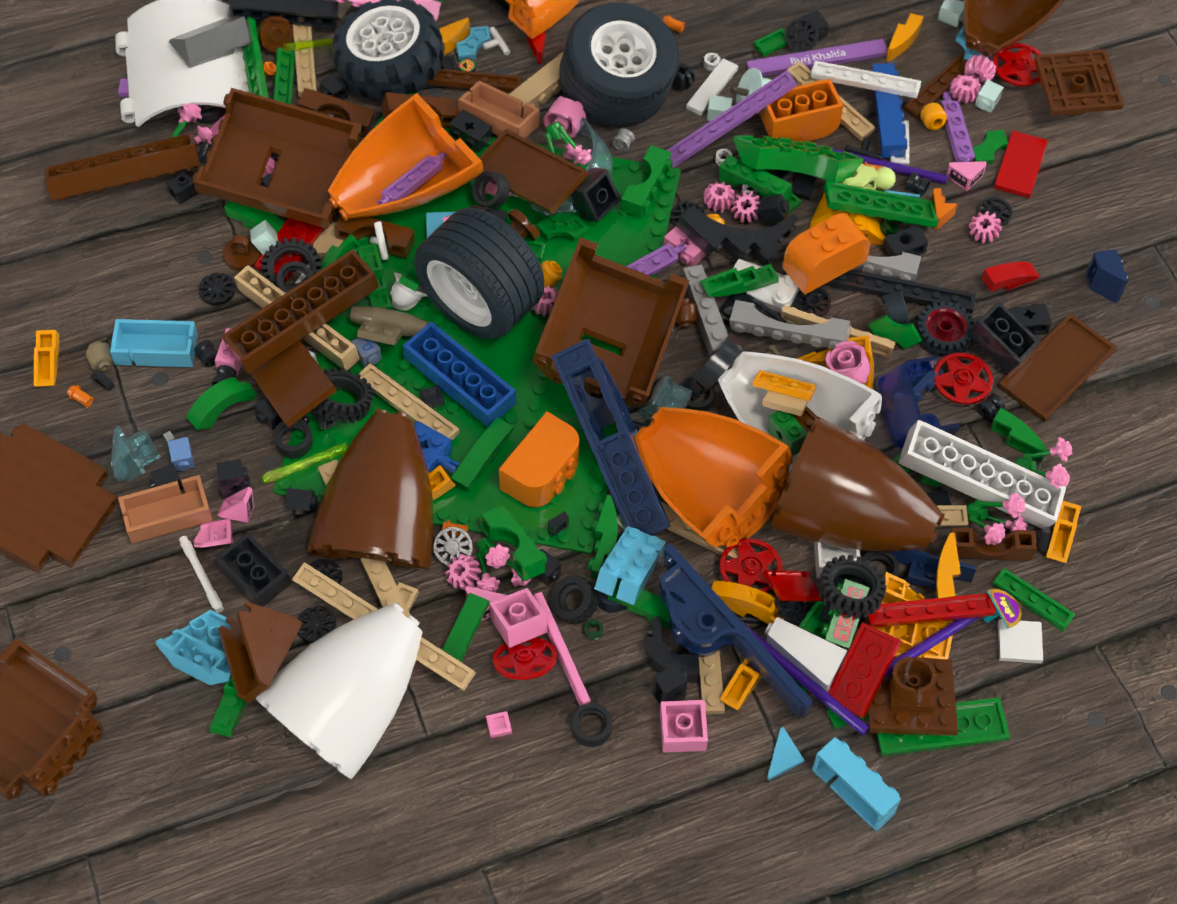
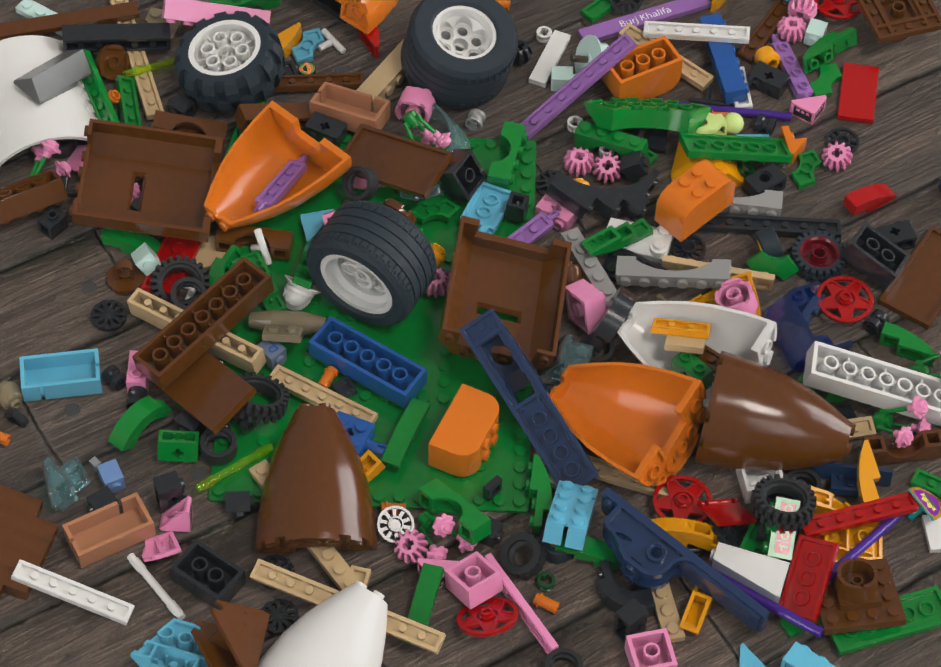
camera: 10 degrees left, 5 degrees down
(115, 567) = (72, 592): none -> white tile
(252, 432) = (178, 446): none -> green brick
(418, 383) = (329, 375): none -> orange pin
(589, 652) = (546, 603): none -> orange pin
(616, 232) = (488, 206): none -> medium azure tile
(644, 235) = (517, 206): none -> black brick
(691, 345) = (584, 304): none -> bright pink brick
(930, 138) = (768, 80): none -> black brick
(947, 242) = (803, 175): none -> green tile
(997, 112) = (825, 48): none -> green slope

